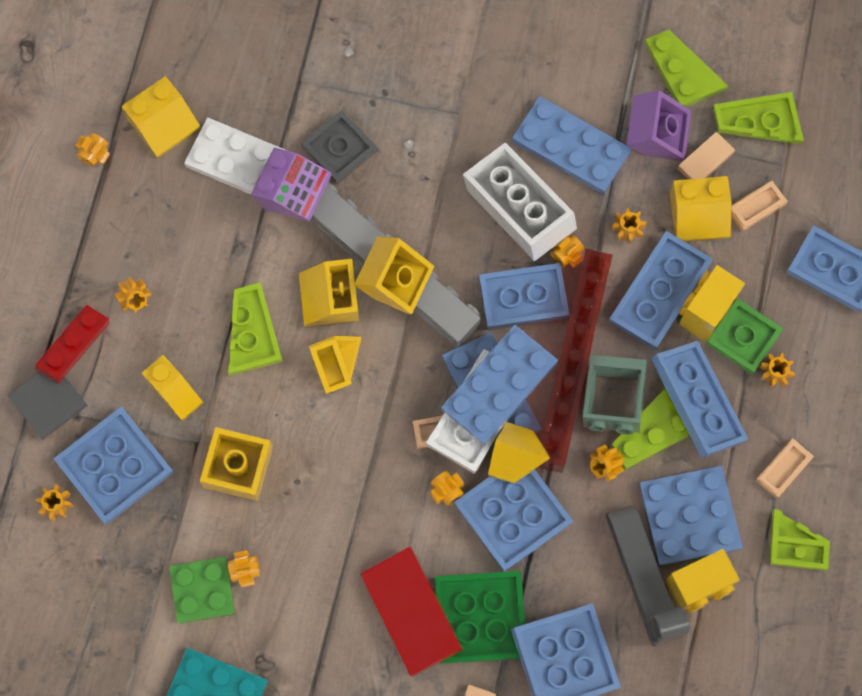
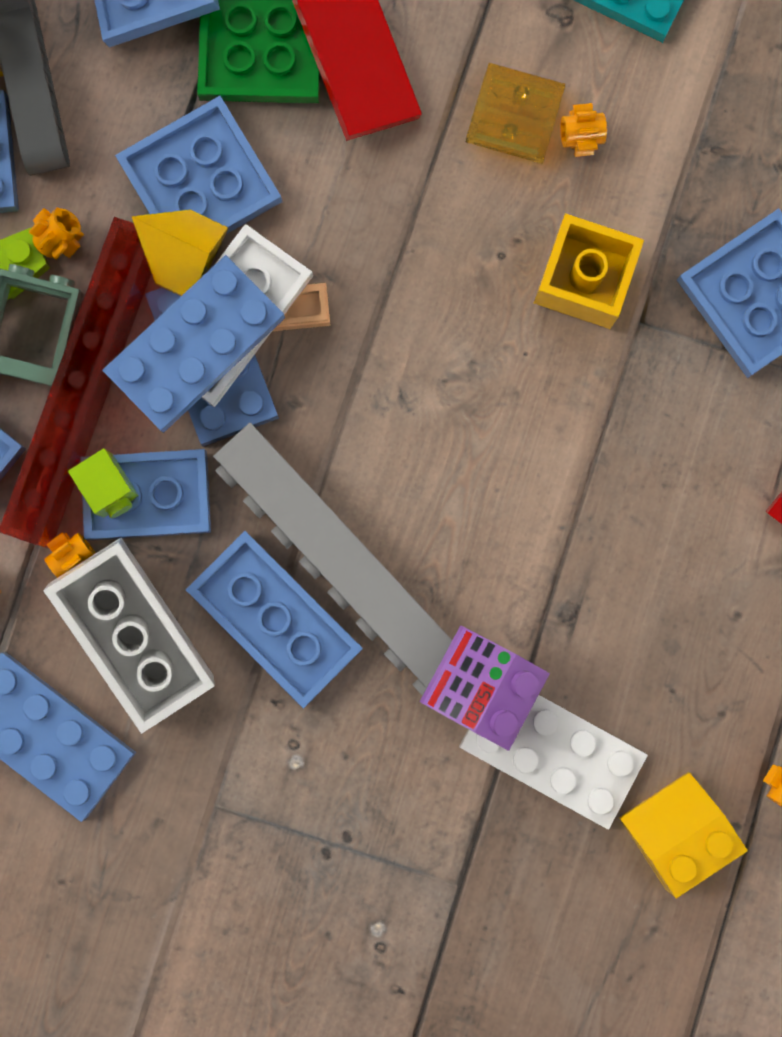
camera: 175 degrees left, 10 degrees up
(132, 294) = (732, 544): light orange gear -> none
(172, 387) = (677, 398): yellow slope -> none
(202, 590) = (642, 113): bright green plate -> none
(253, 335) = (553, 471): lime wing -> none
(293, 580) = (515, 113): none -> clear yellow slope
(329, 293) = (437, 518): yellow slope -> none
(335, 360) = (435, 418): yellow slope -> none
(339, 147) = (404, 761): dark grey plate -> none
(394, 274) = (336, 526): yellow slope -> none
(430, 225) = (274, 619): none -> medium blue plate
(446, 488) = (289, 216): light orange gear -> none
(549, 292) = (104, 484): none -> lime brick

